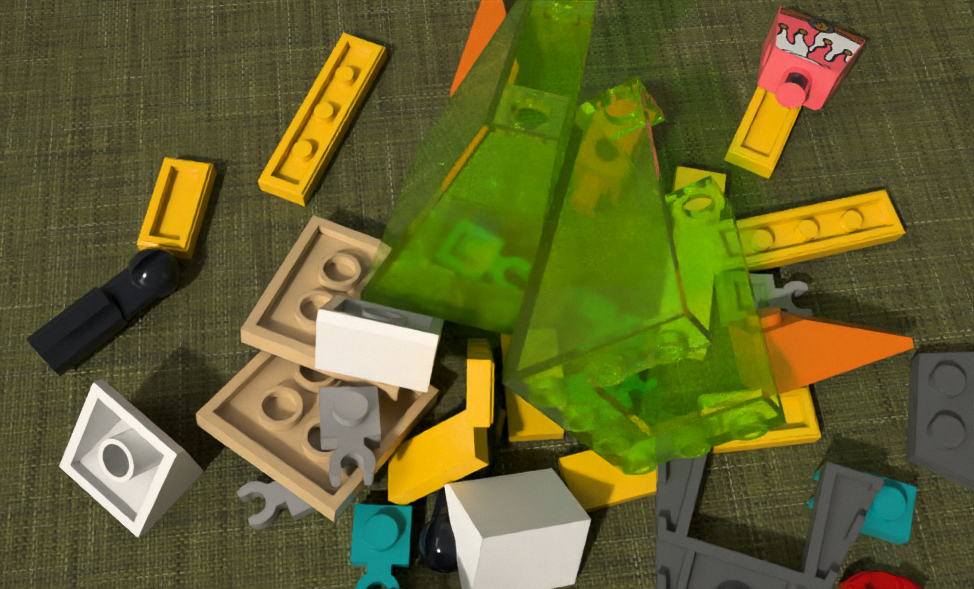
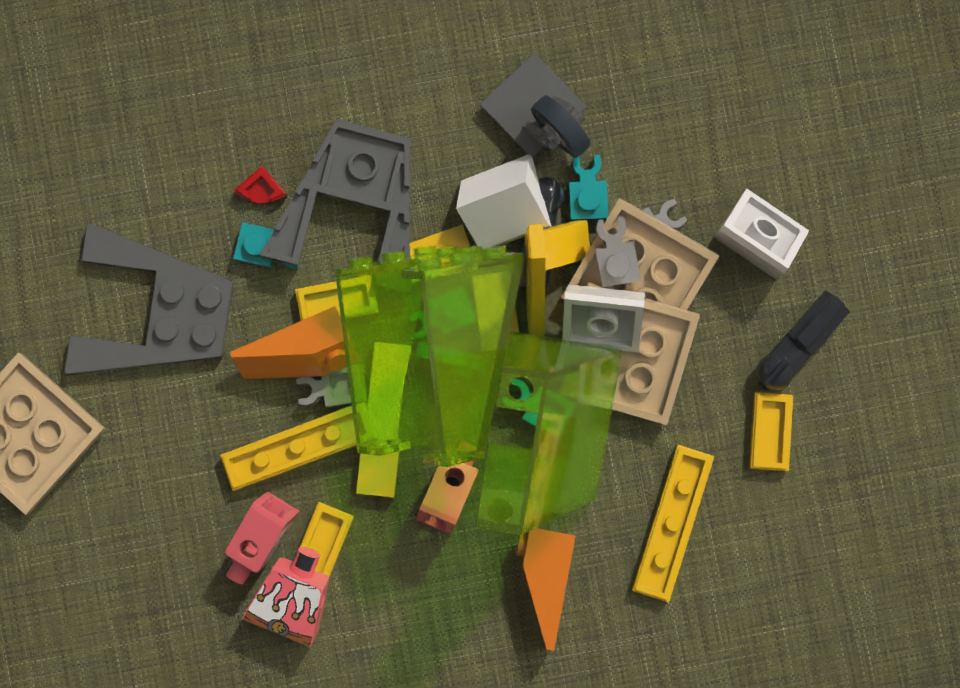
camera: 175 degrees right, 20 degrees up
(858, 116) = (266, 527): none -> coral torso

